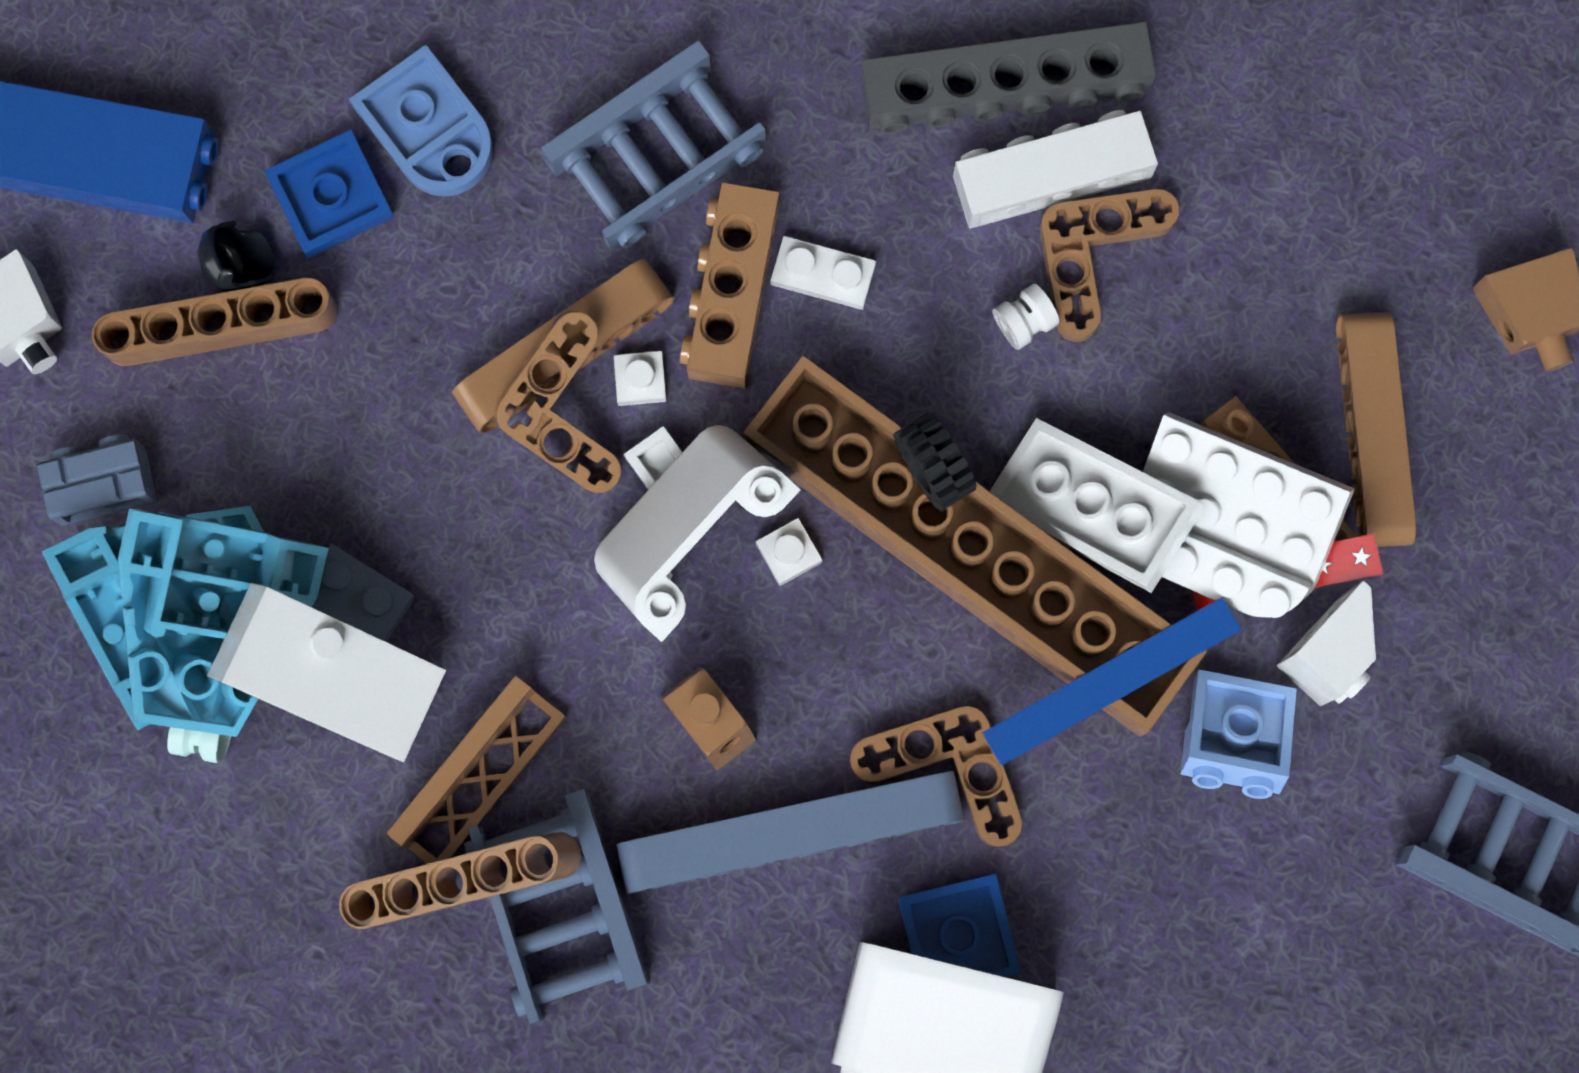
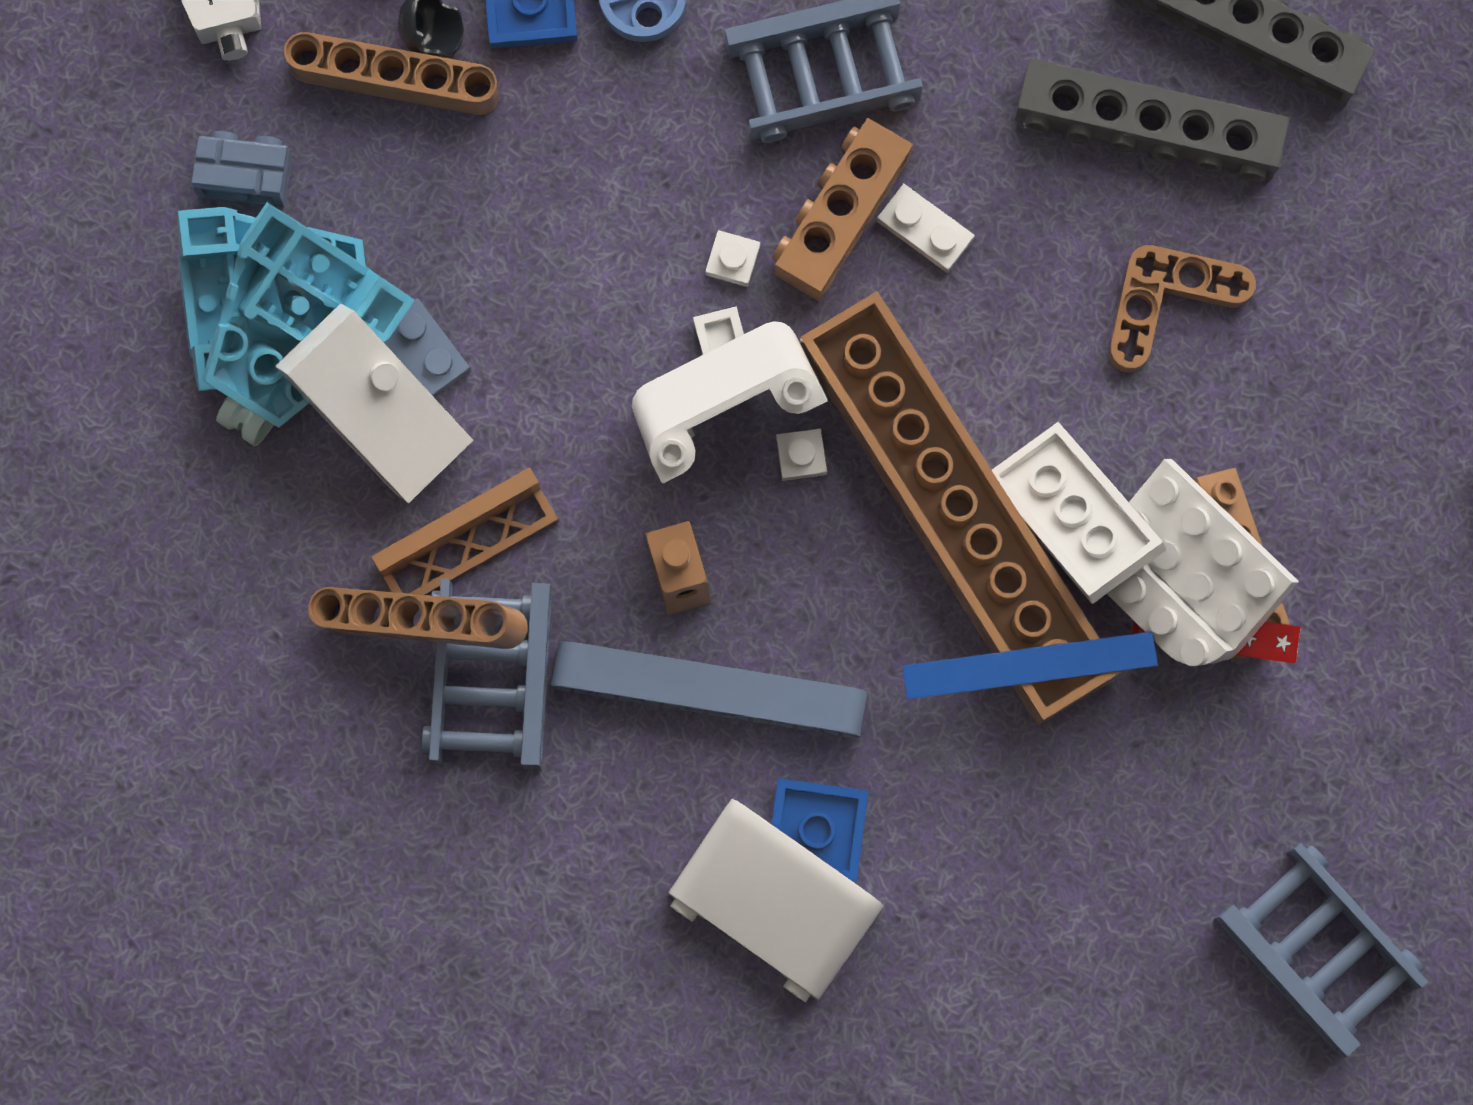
camera: 20 degrees right, 0 degrees up
(543, 420) = (636, 259): medium nougat beam -> none
(616, 308) = (676, 204): medium nougat beam -> none
(935, 461) = (951, 421): black tyre -> none
(963, 756) = (881, 684): medium nougat beam -> none
(1026, 316) = (1084, 332): white wheel -> none
(1054, 168) = (1160, 214): white brick -> none
(1239, 734) = (1123, 755): light blue plate -> none
(1336, 650) = (1231, 715): white slope -> none
(1377, 428) = (1349, 543): medium nougat beam -> none

